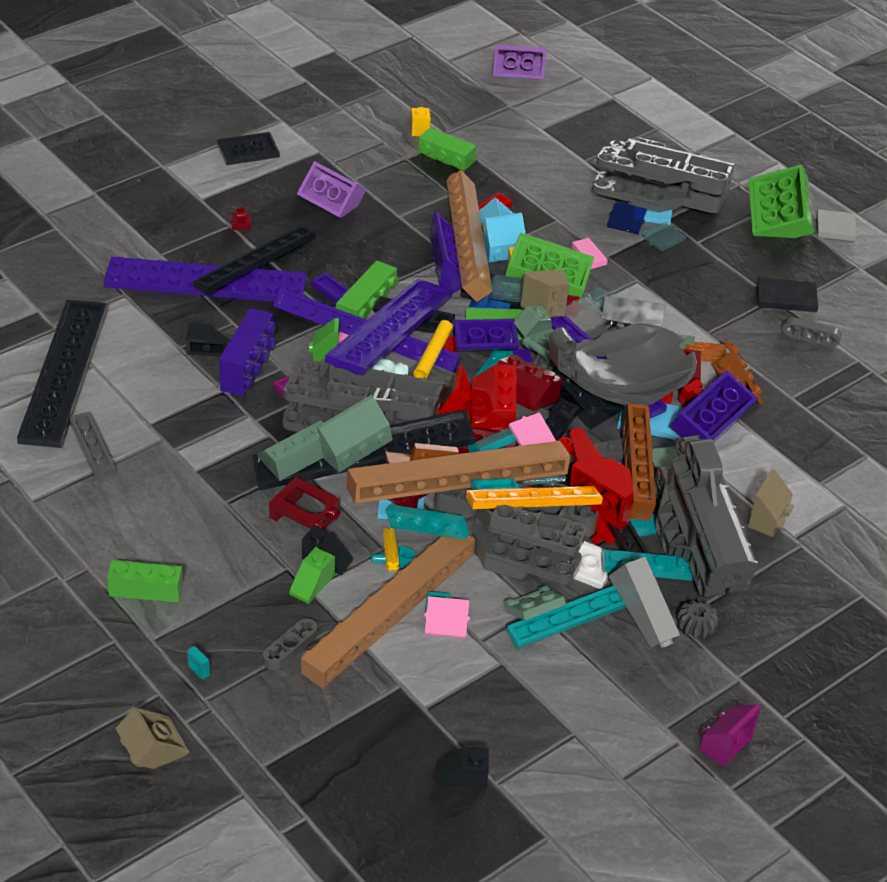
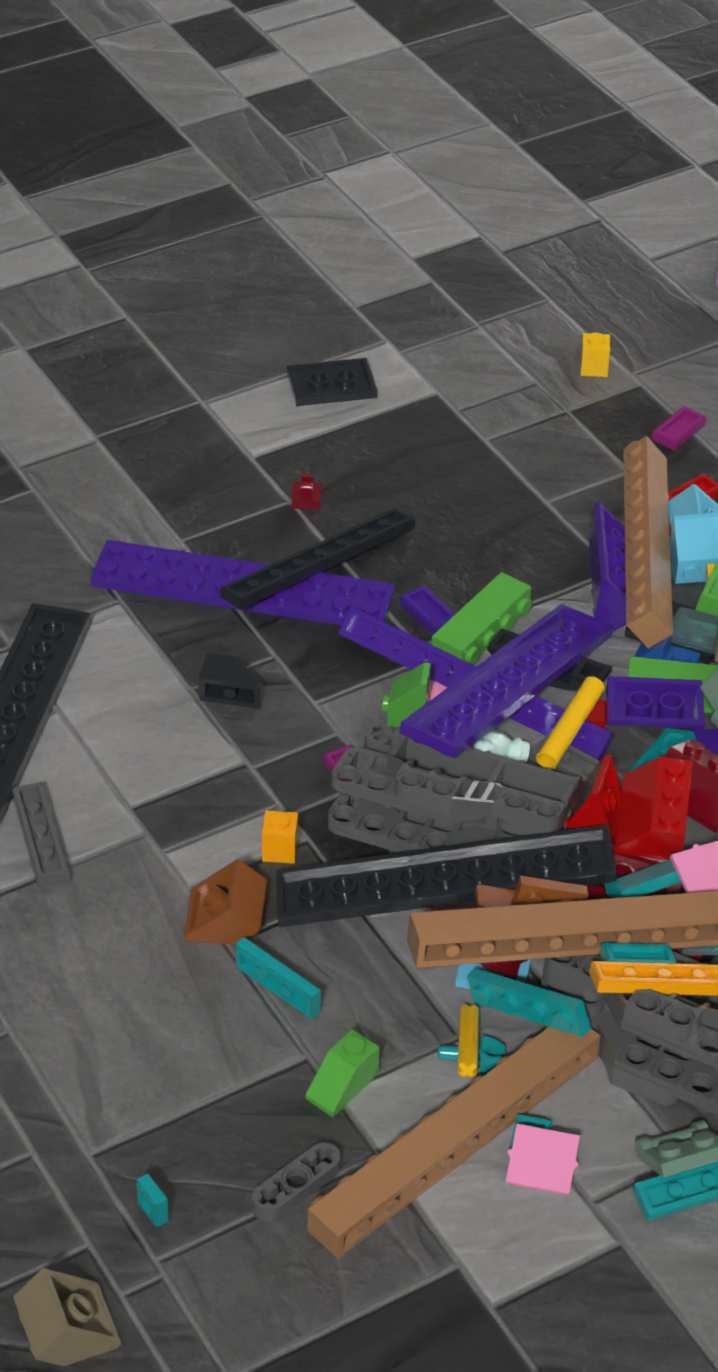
camera: 10 degrees right, 0 degrees up
(145, 581) = (89, 1061): bright green brick -> none
(222, 479) = (226, 906): none -> dark orange slope
(247, 352) = (287, 705): dark purple brick -> none
(252, 434) = (280, 837): none -> light orange brick
(262, 521) = (278, 978): none -> teal tile
(284, 505) = (313, 953): dark red panel -> none
(293, 452) = (345, 870): sand green slope -> none
(329, 543) = (372, 1025): black slope -> none
(331, 190) = (446, 456): medium lavender slope -> none
(354, 434) = (430, 852): sand green slope -> none
(447, 149) = (630, 399): bright green brick -> none
(480, 165) = (679, 428): none -> magenta tile

